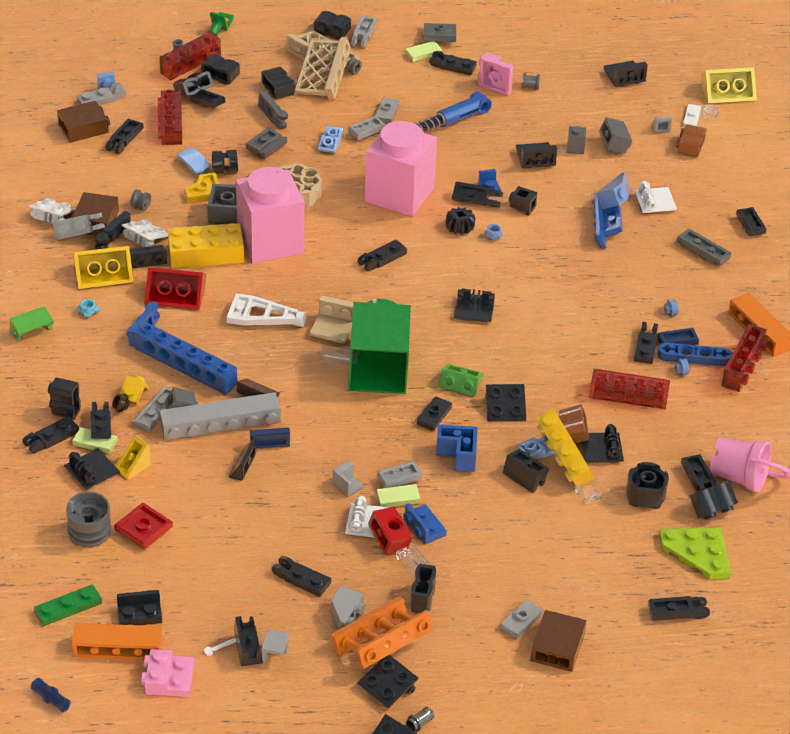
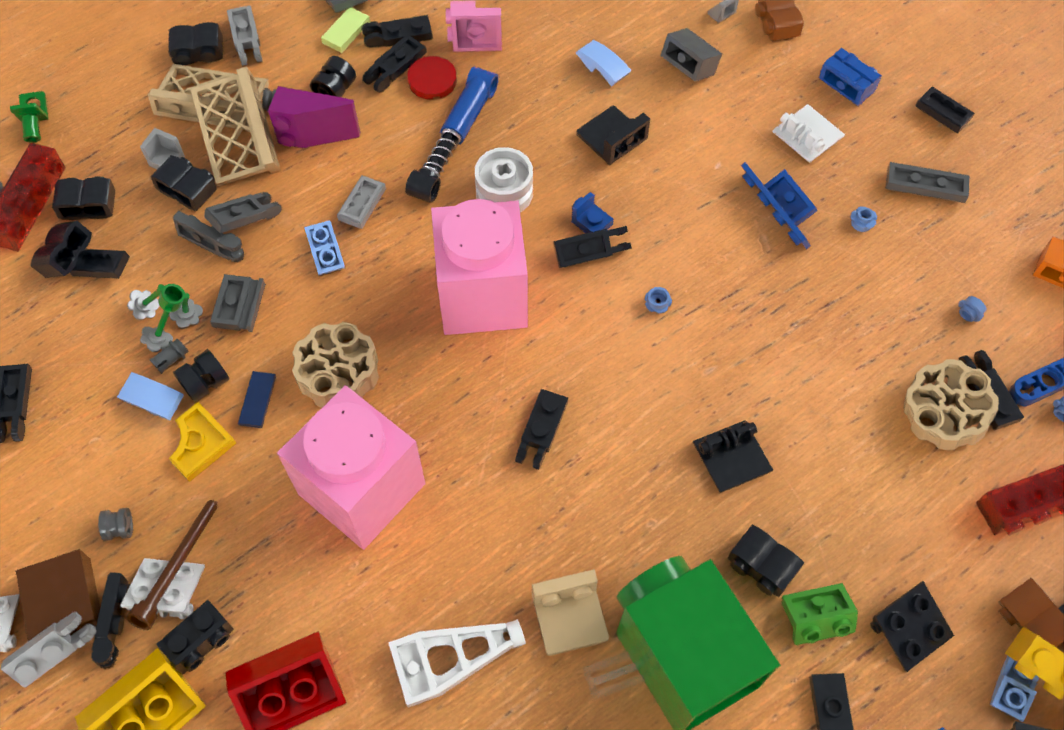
camera: 30 degrees left, 20 degrees up
(131, 227) = (145, 612): none -> reddish brown piece
(170, 117) = (64, 329): clear red brick -> none
(205, 245) = (277, 567): yellow brick -> none
(216, 147) = (169, 355): none -> dark grey pin
(219, 125) = (171, 299): none -> light grey plant
(222, 204) = (255, 463): dark grey brick -> none
(275, 60) = (160, 147): none -> light grey panel
(298, 104) = (242, 211): none -> dark grey hinge
(367, 78) = (312, 118): none -> magenta slope
(387, 110) = (366, 154): light grey plate -> none
(395, 69) = (333, 78): none -> black wheel
(437, 76) = (394, 63): none -> black hinge
(451, 347) = (765, 561): none -> black brick
(452, 148) = (504, 176): none -> white wheel
(454, 91) = (432, 77): none -> red tile
(460, 220) = (604, 305): black gear -> none
(523, 199) = (657, 222): black brick -> none
(531, 81) = (519, 14): dark grey bush -> none
(560, 119) = (600, 57): none -> light blue slope
(576, 140) = (648, 85): dark grey brick -> none
(612, 332) = (970, 407): none -> tan connector
(614, 192) = (767, 152): medium blue slope -> none
(648, 248) = (863, 224): none -> medium blue plate
(682, 336) = (1017, 357): dark blue tile -> none
(706, 183) = (850, 76): none -> blue brick

